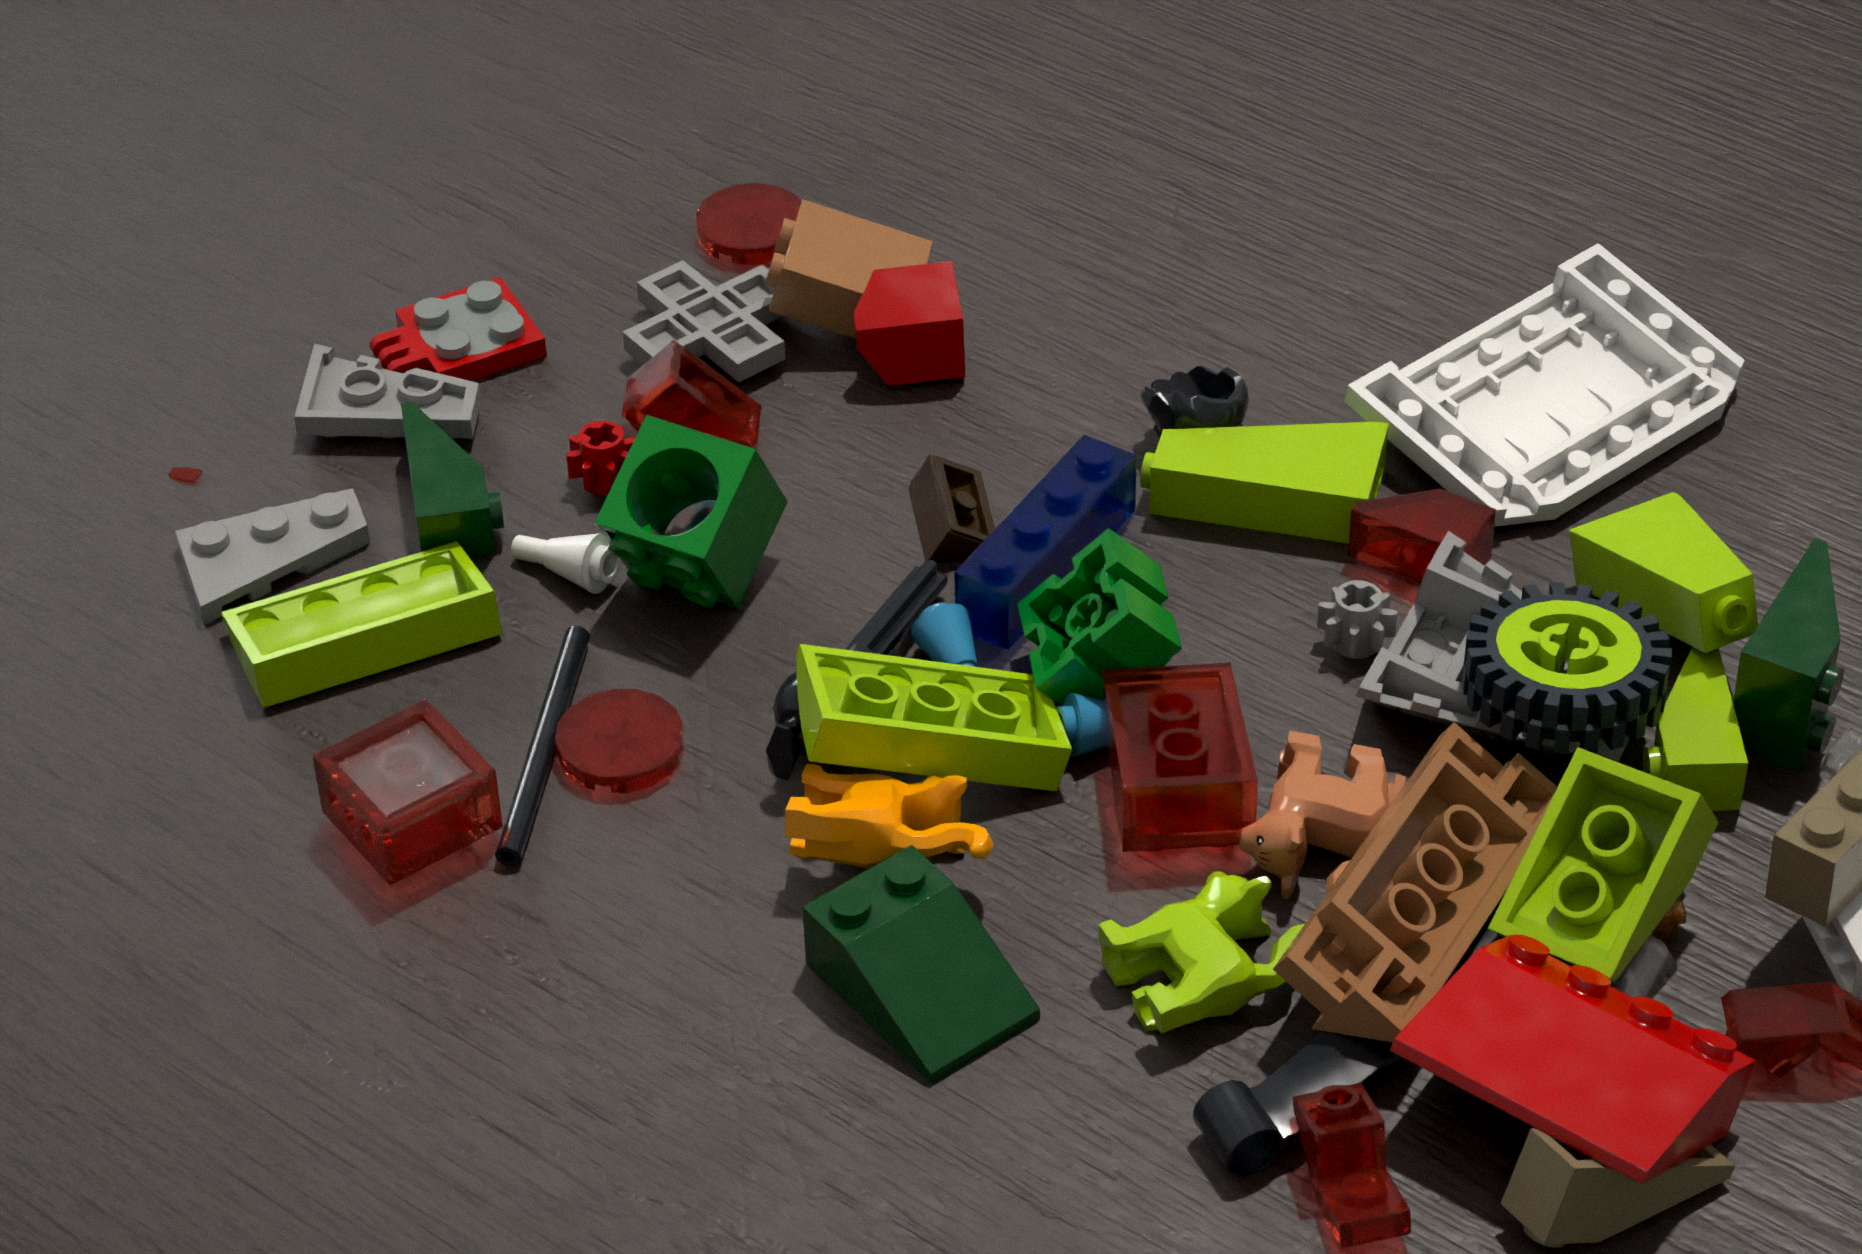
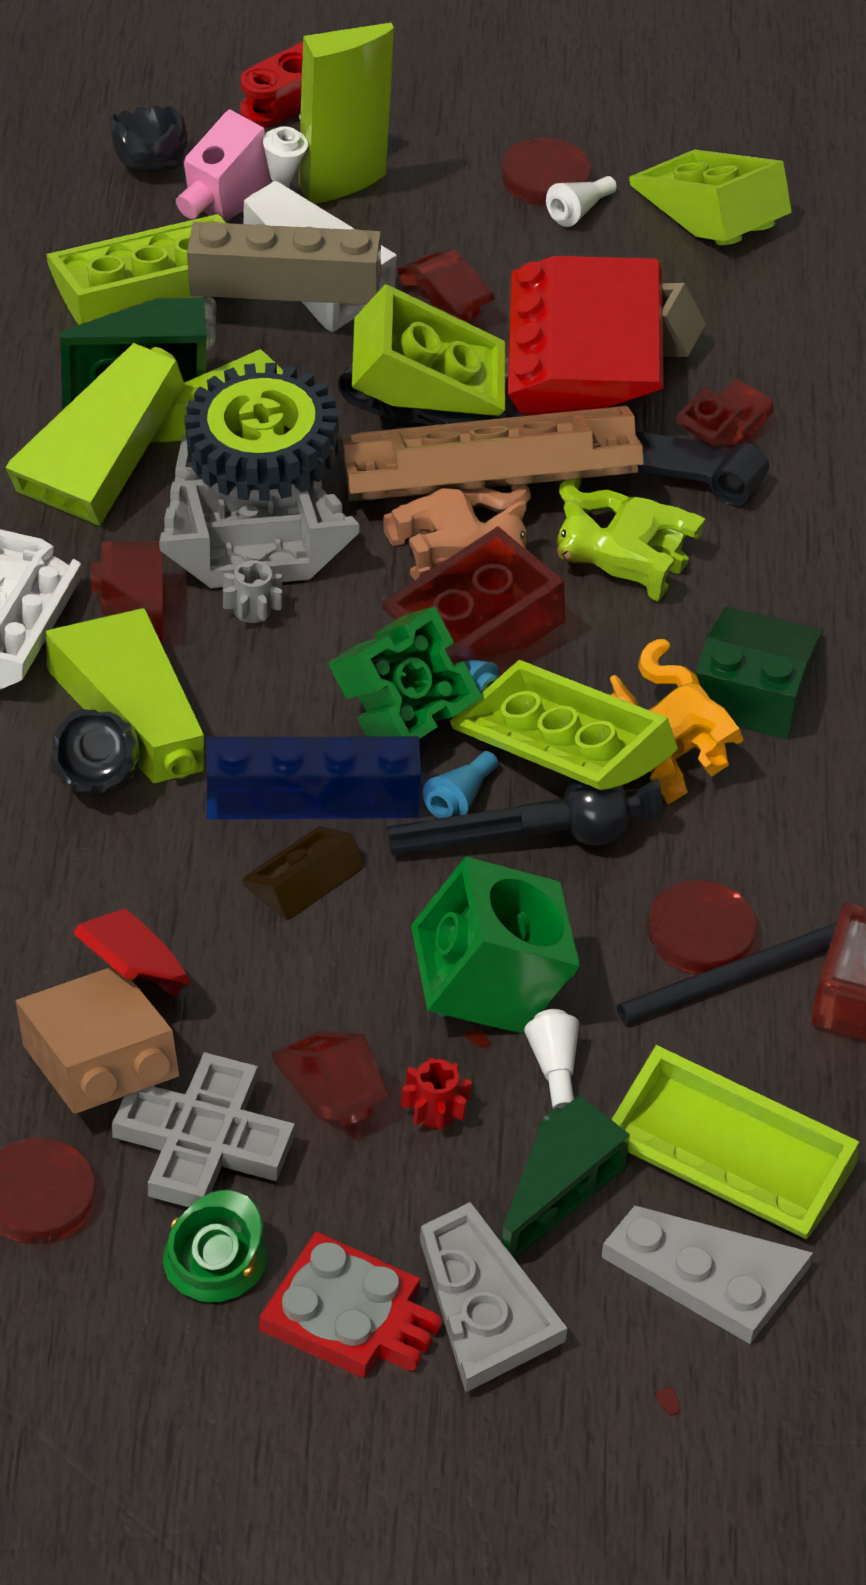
camera: 130 degrees left, 5 degrees up
(588, 284) = (216, 1247): none -> green piece

